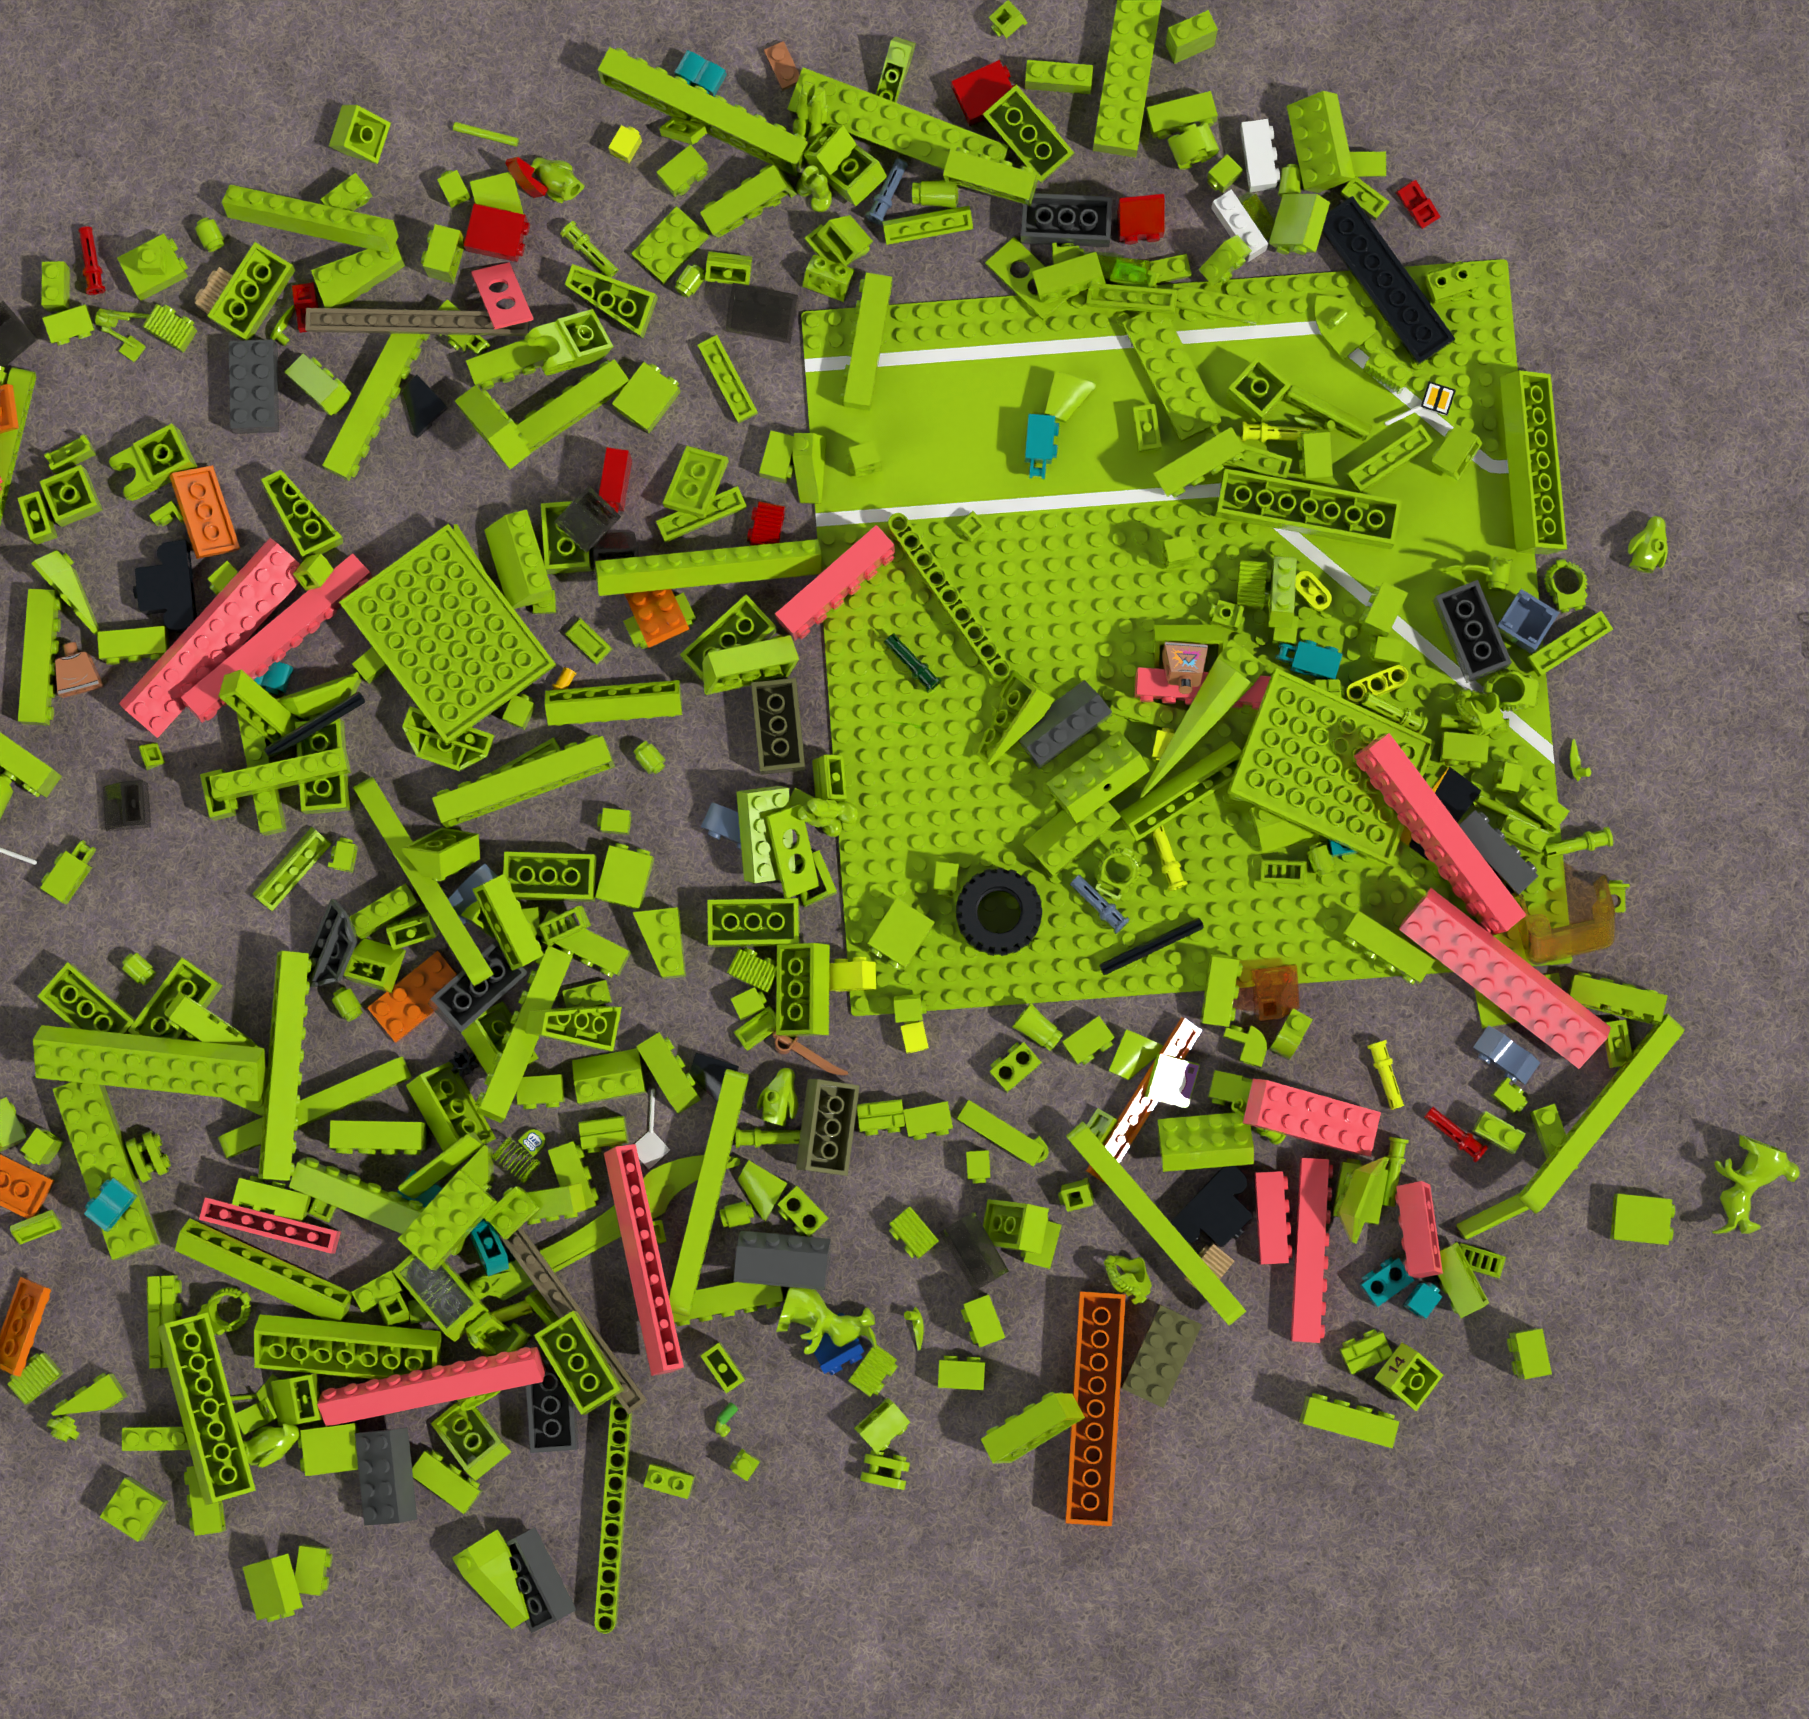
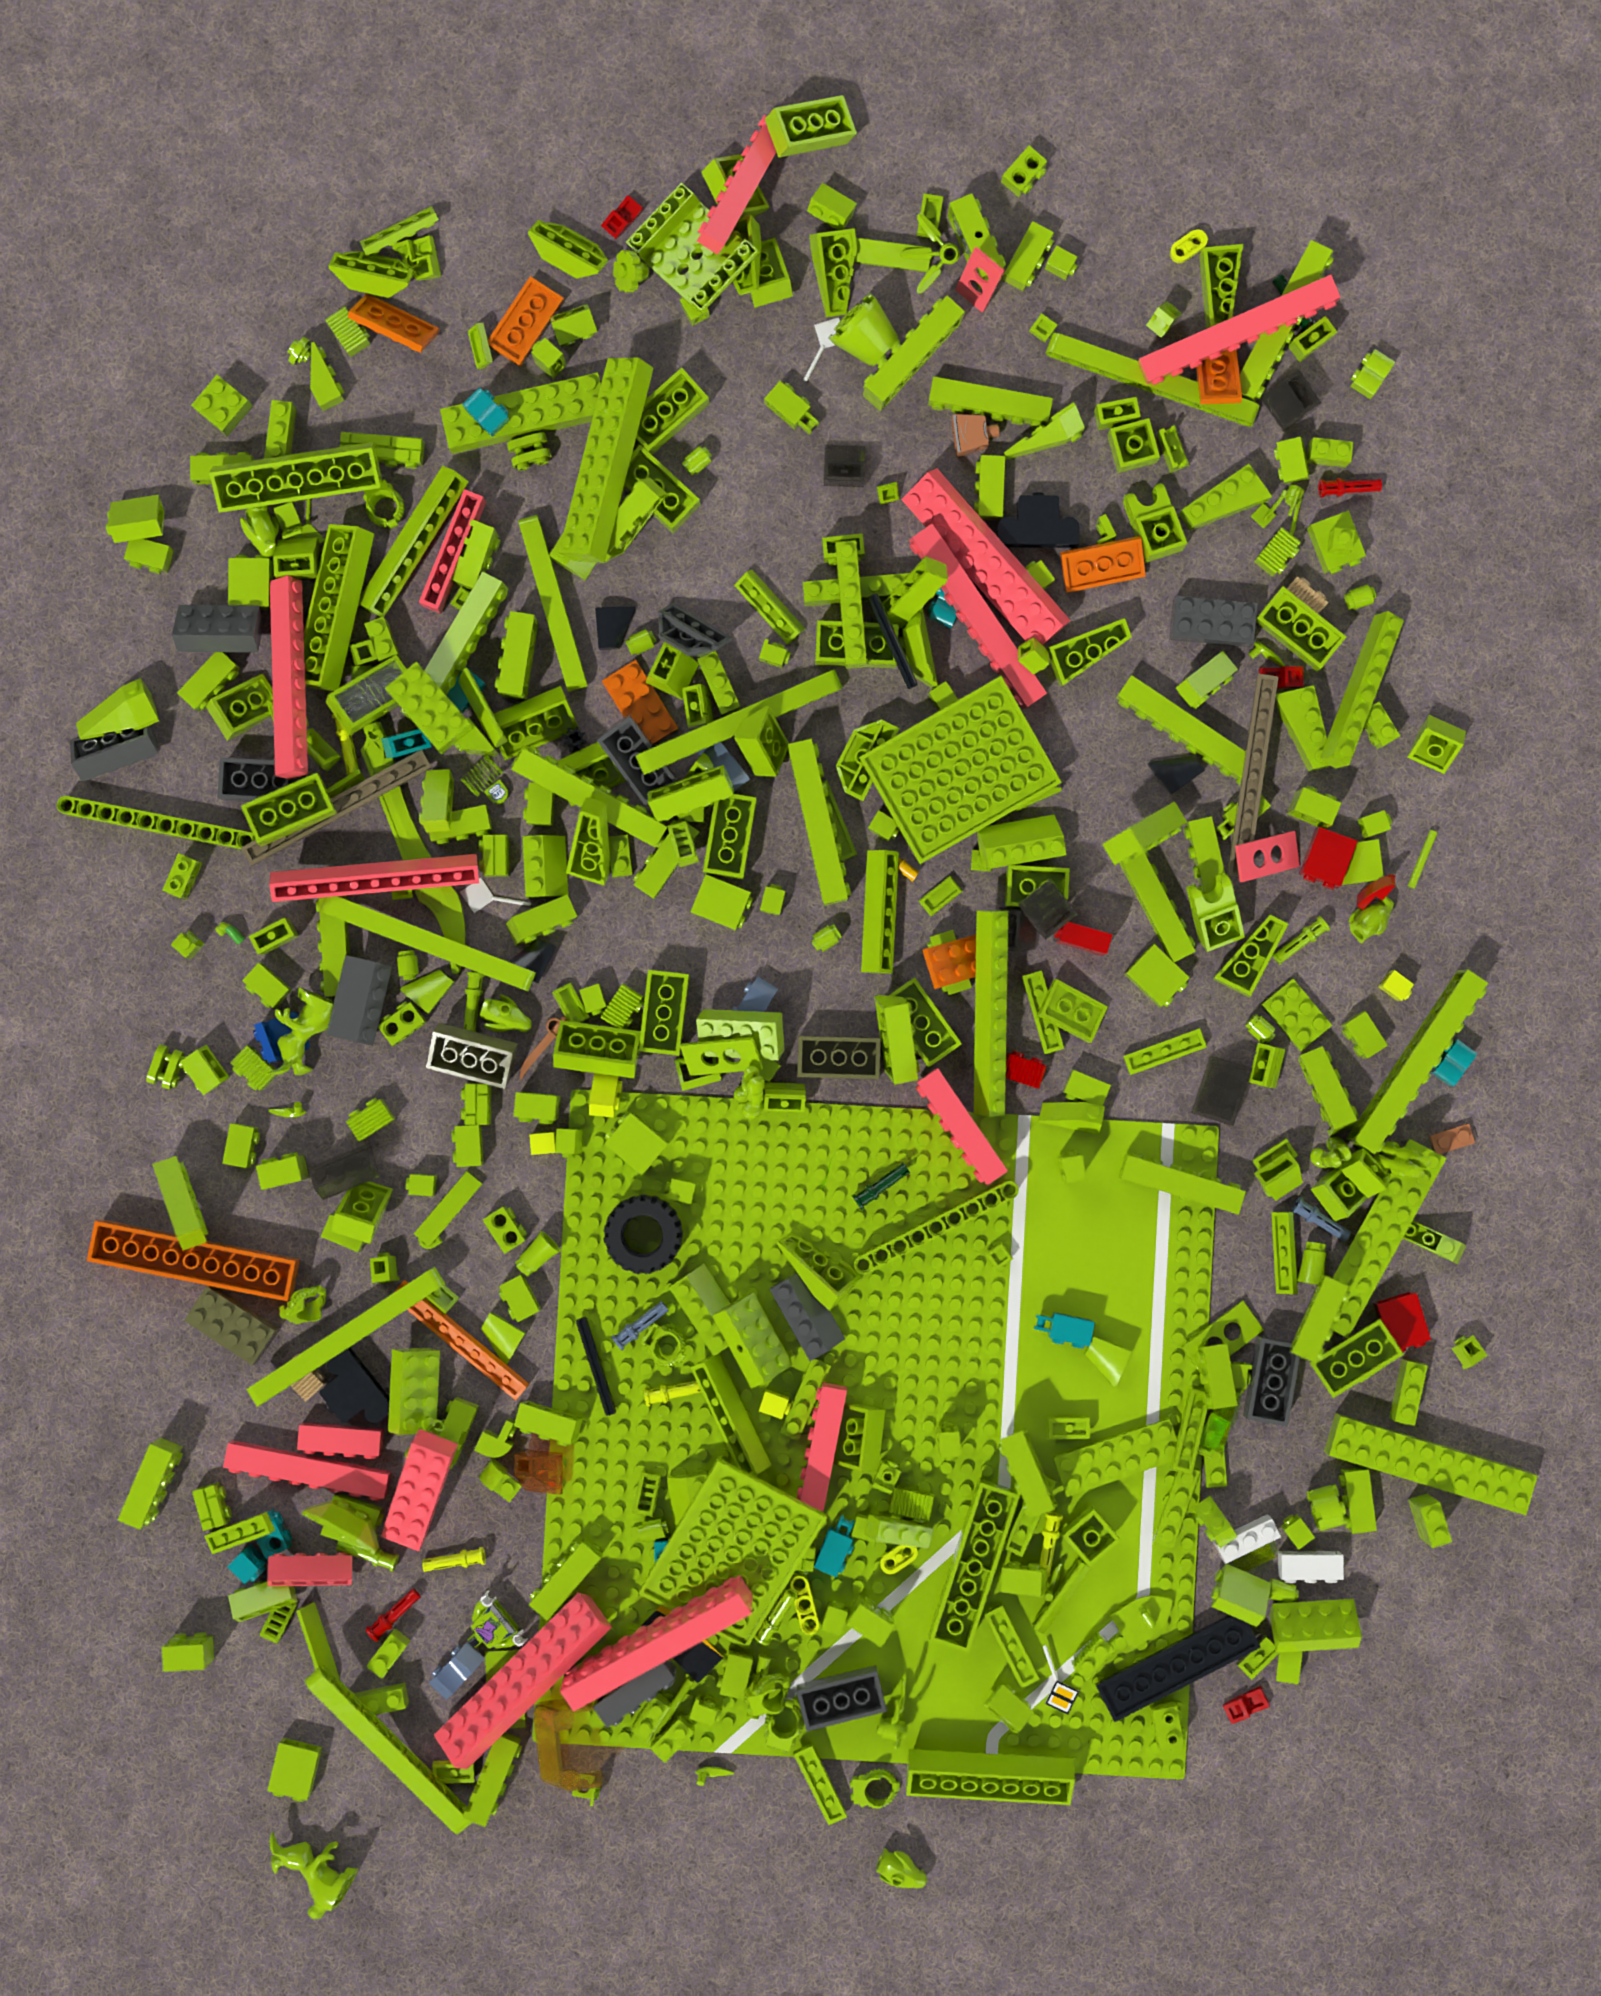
camera: 95 degrees right, 5 degrees up
(113, 381) = (1229, 497): none -> lime wedge
(283, 1066) = (589, 578): lime brick -> none
(332, 1038) = (612, 625): none -> black slope
(487, 1333) = (330, 730): lime bracket -> none
(511, 1211) = (432, 766): lime bracket -> none
(664, 939) = (662, 930): lime wedge -> none
(683, 130) = (1401, 1040): lime plate -> none
(779, 1369) = (266, 985): none -> lime brick
(827, 277) = (1246, 1155): lime bracket -> none
(874, 1047) = (537, 1106): none -> lime brick
(1141, 218) = (1263, 1450): red slope -> none
(1172, 1080) = (473, 1368): tile -> none
(1184, 664) = (842, 1433): nougat torso -> none
(1225, 684) = (821, 1468): lime plate -> none
(1388, 1311) = (239, 1533): none -> lime plate
(1409, 1376) = (182, 1542): lime brick -> none
(1451, 1020) = (494, 1625): none -> torso
(1509, 1096) = (420, 1667): lime brick -> none
(1526, 621) = (844, 1749): sand blue container -> none
(1588, 841) = (638, 1773): lime pin -> none

